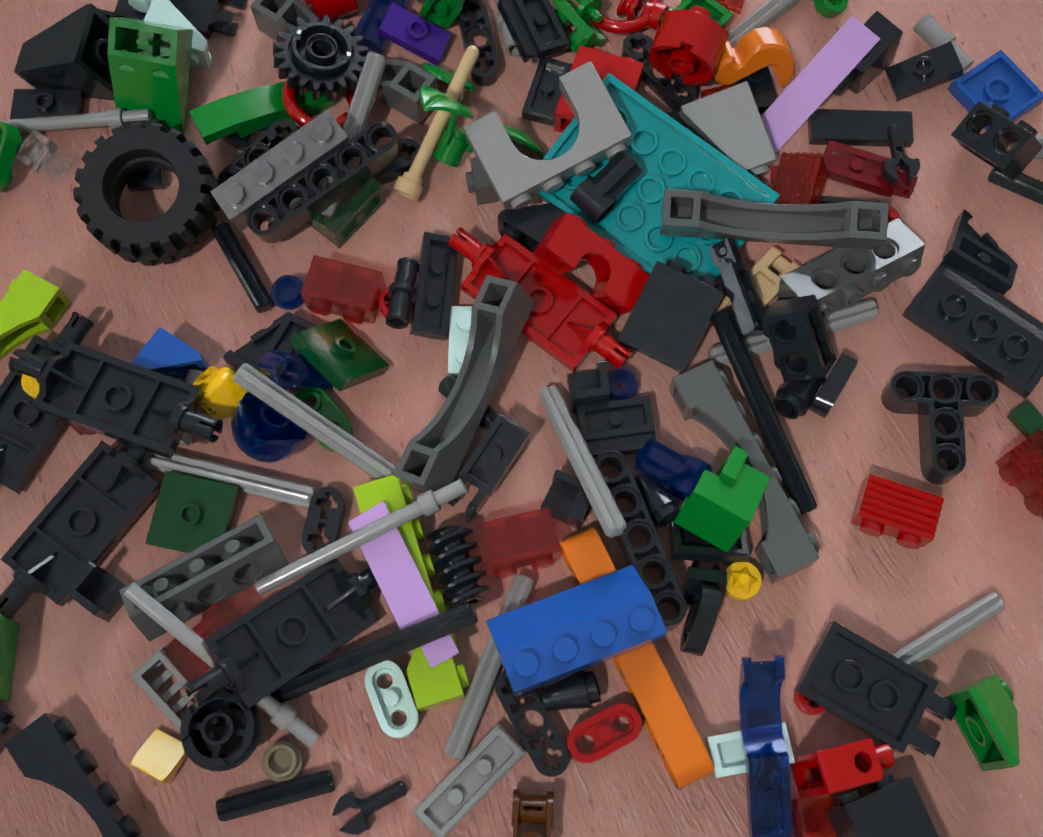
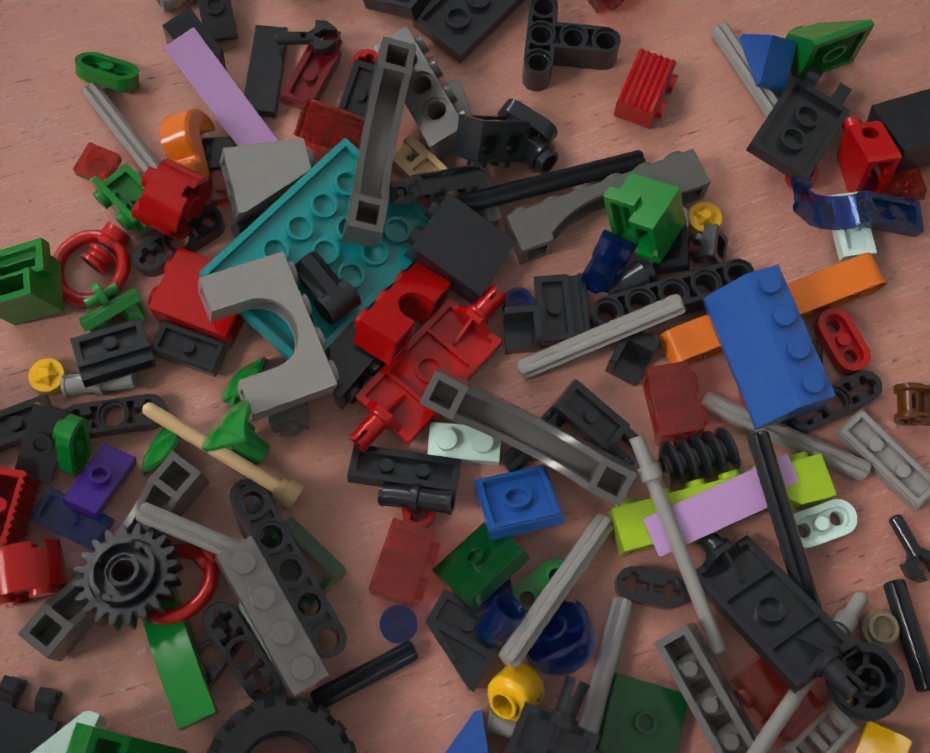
camera: 90 degrees left, 0 degrees up
(402, 387) = (518, 502): none -> blue tile
(700, 619) = (738, 243): black beam -> none
(956, 652) = (768, 59): none -> blue slope

